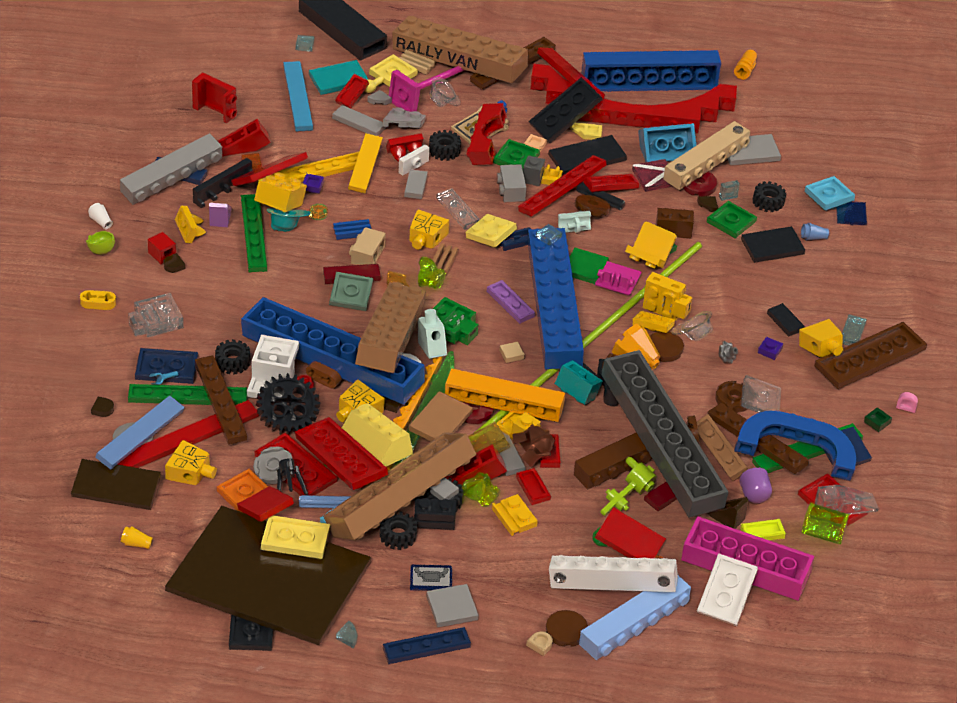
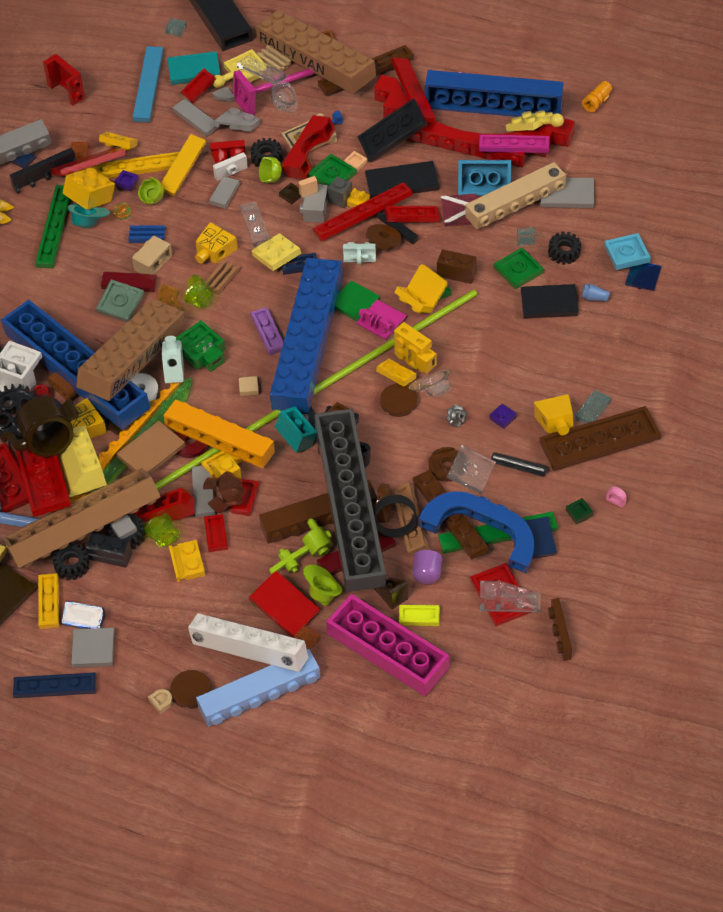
camera: 20 degrees right, 10 degrees up
(219, 214) = (28, 203): medium lavender slope -> none
(245, 139) = (81, 126): red slope -> none
(282, 148) = (123, 142): none -> yellow plate
(331, 406) = (44, 426): none -> dark brown piece
(343, 189) = (151, 191): none -> lime hair
(388, 570) = (48, 601): none -> yellow tile
(413, 70) = (261, 69): none -> clear tile
(455, 158) = (269, 170): none -> lime hair
(483, 178) = (290, 193): none -> dark brown tile
(489, 435) = (187, 477): clear yellow plate -> none
(505, 166) = (308, 186): none -> light nougat tile
(548, 234) = (320, 267): clear light blue tile -> none
(587, 131) = (412, 153): light yellow tile -> none
(638, 339) = (366, 400): light orange cone -> none
(660, 517) = (322, 584): none -> lime piece
(688, 110) = (514, 143): none -> dark pink tile
(701, 88) = (532, 121): none -> light yellow plate
(707, 187) = (503, 231): dark red tile -> none
(708, 202) = (501, 247): dark brown tile -> none
(727, 589) = (354, 676): white tile -> none
(729, 444) = (399, 531): none -> black tyre
(785, 319) = (529, 386): black tile -> none
(804, 387) = (519, 464): none -> black axle
(825, 523) = (478, 619): clear neon green brick -> none
(904, 522) = (560, 630): none -> reddish brown plate

